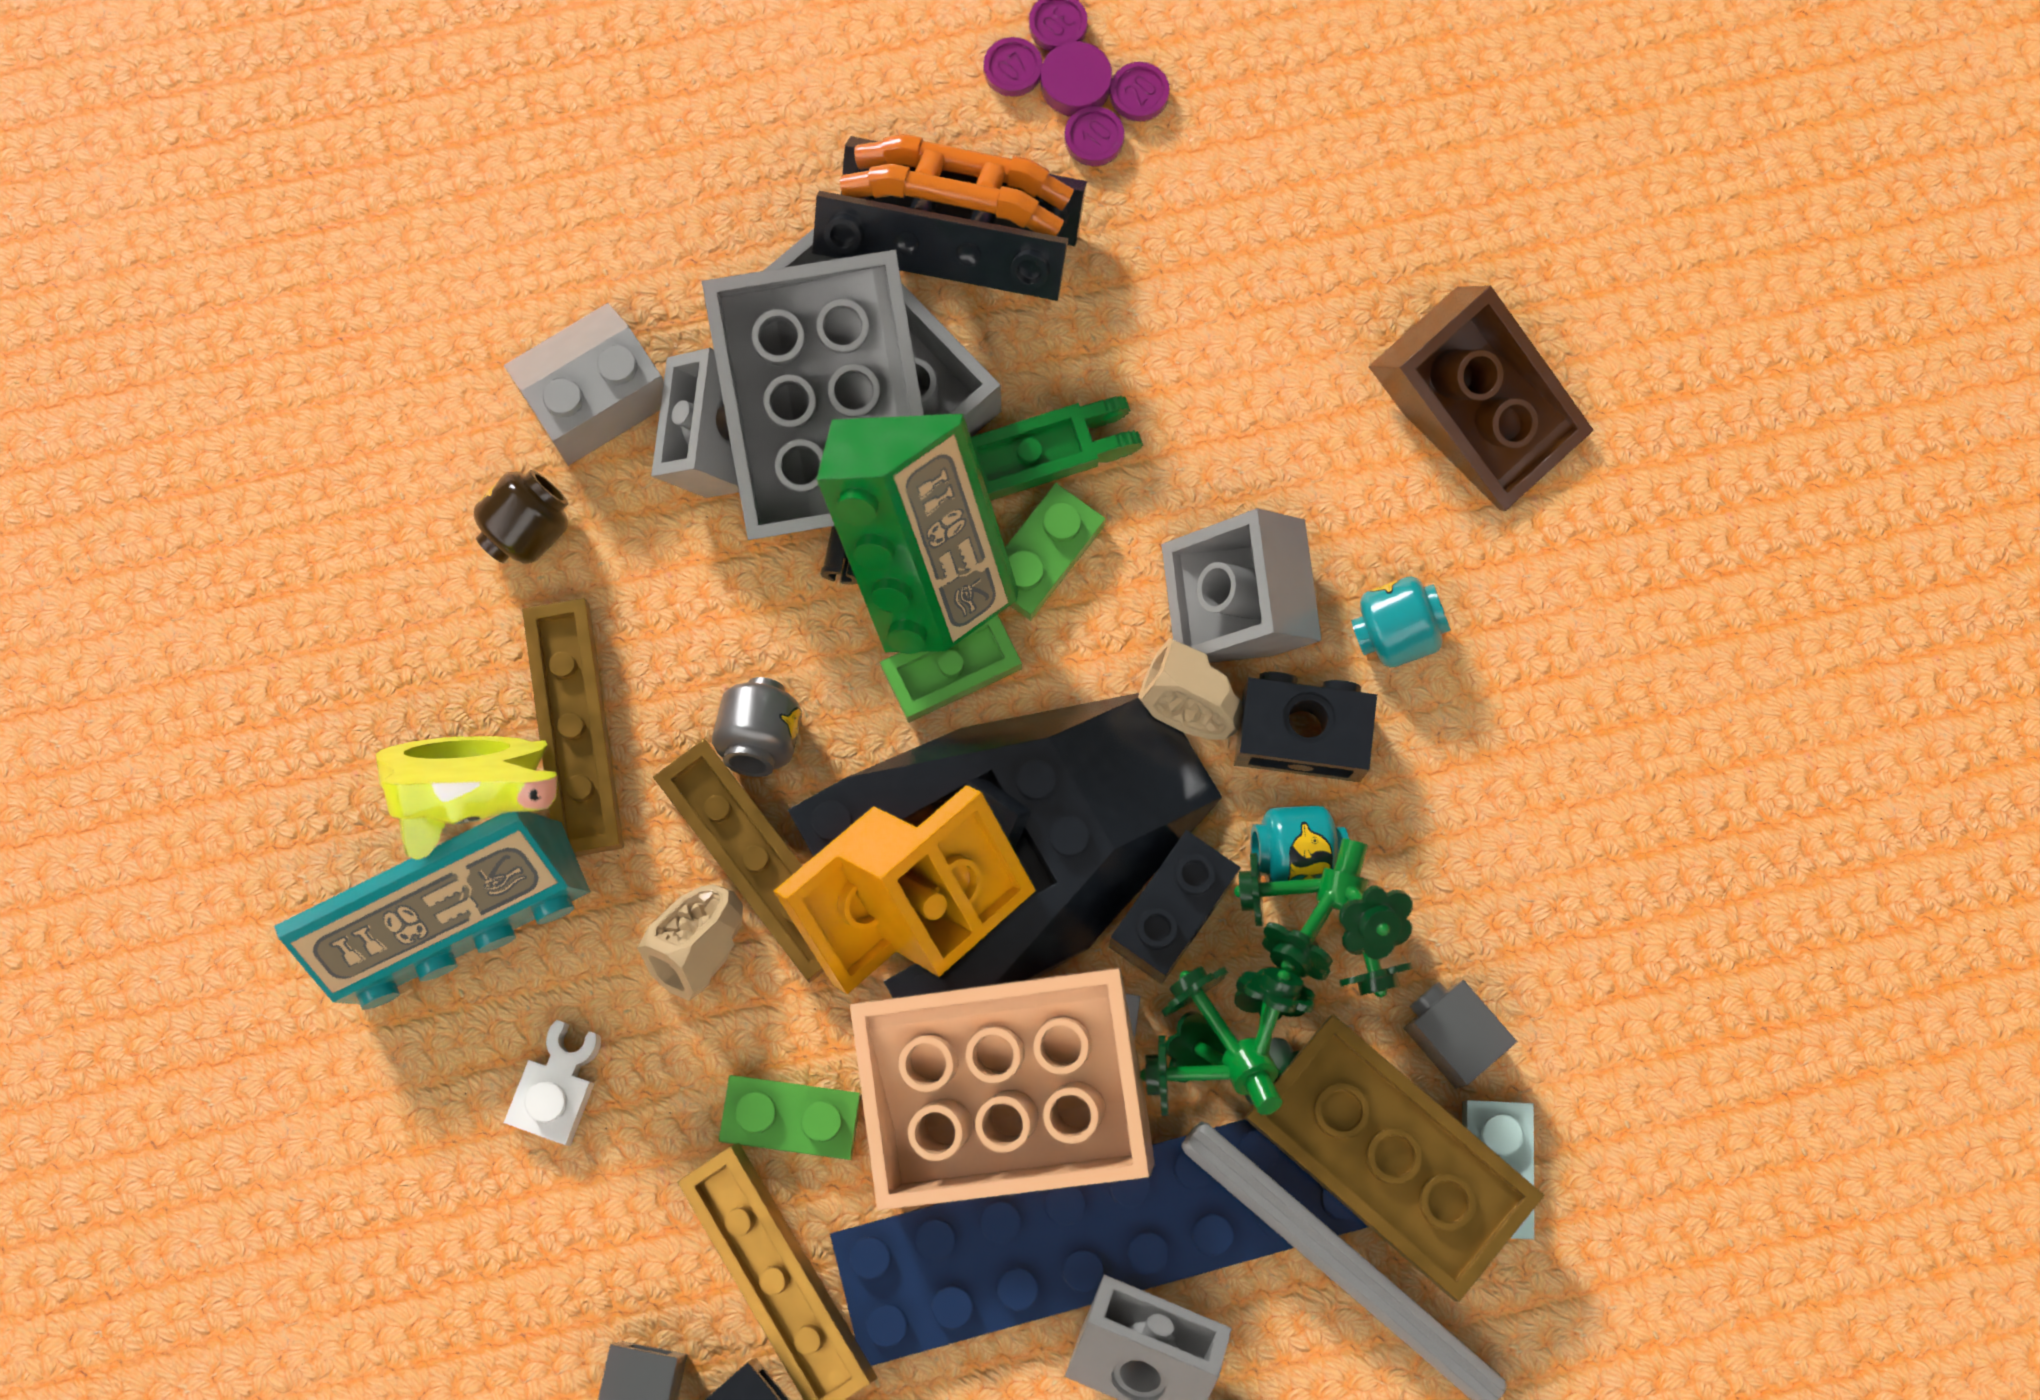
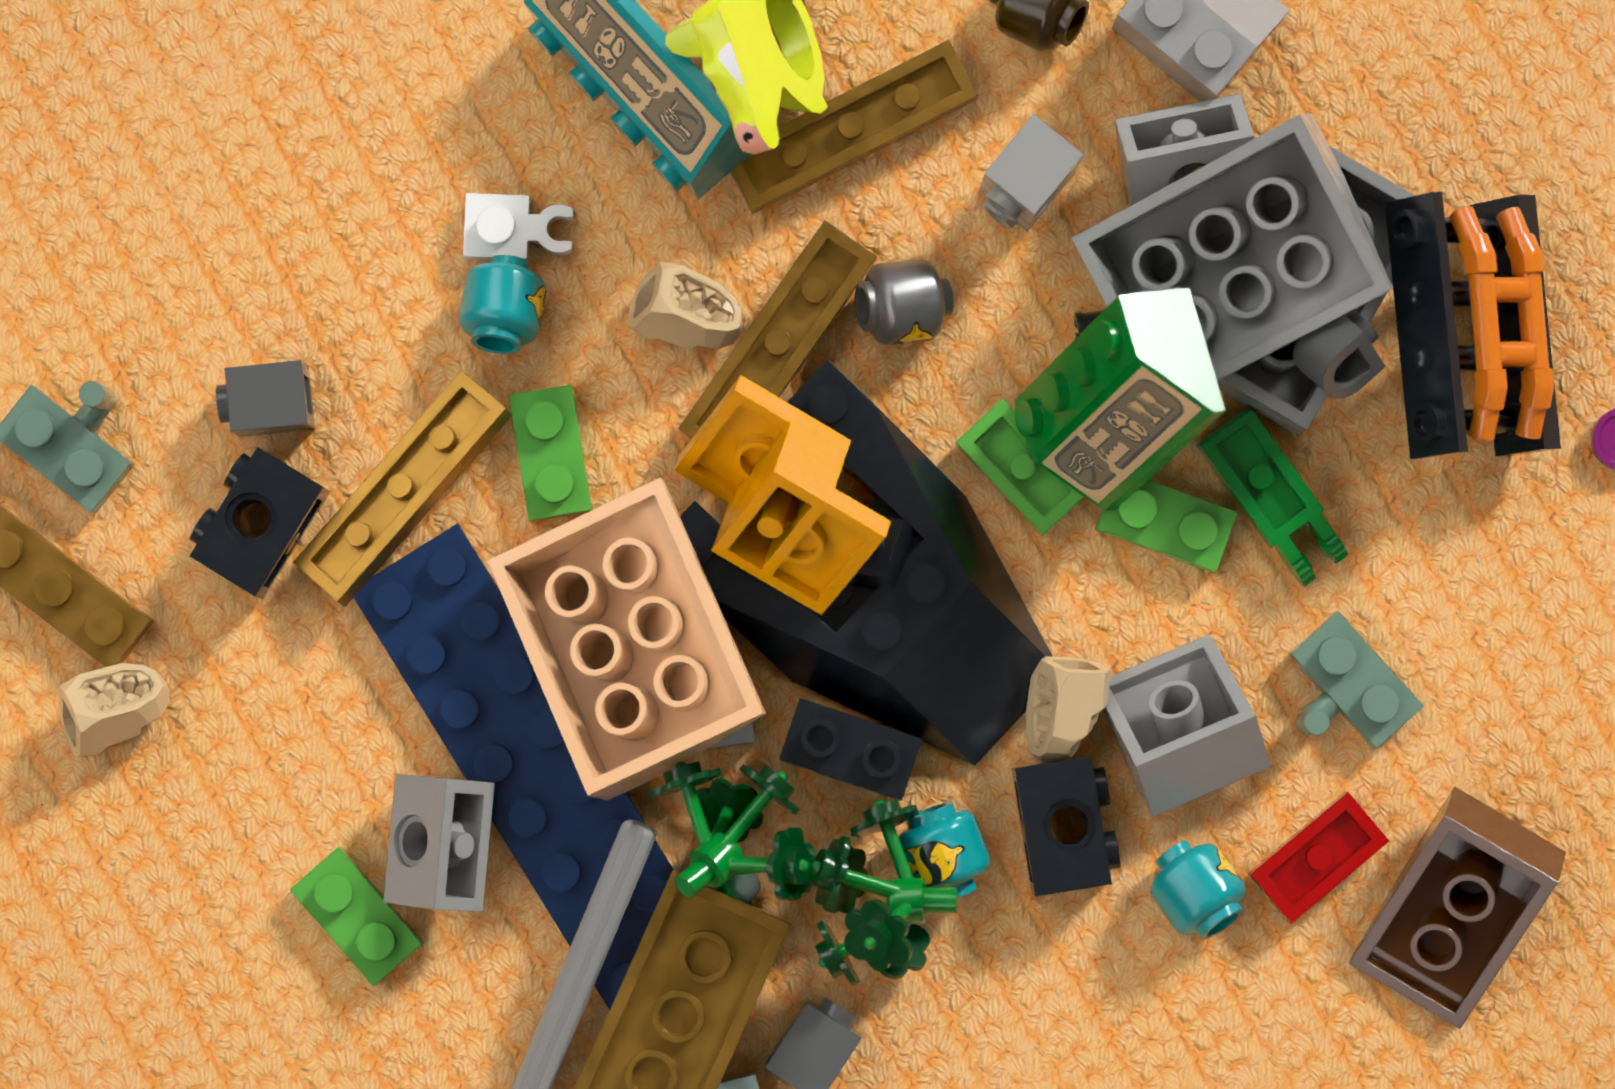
camera: 70 degrees right, 10 degrees up
(626, 1119) = (502, 305): none -> teal head
(675, 567) = (1028, 175): none -> light grey brick
(941, 326) = (1339, 355): none -> dark grey plate
(1247, 430) = (1351, 683): none -> sand green plate
(1400, 506) = (1318, 857): none -> red plate

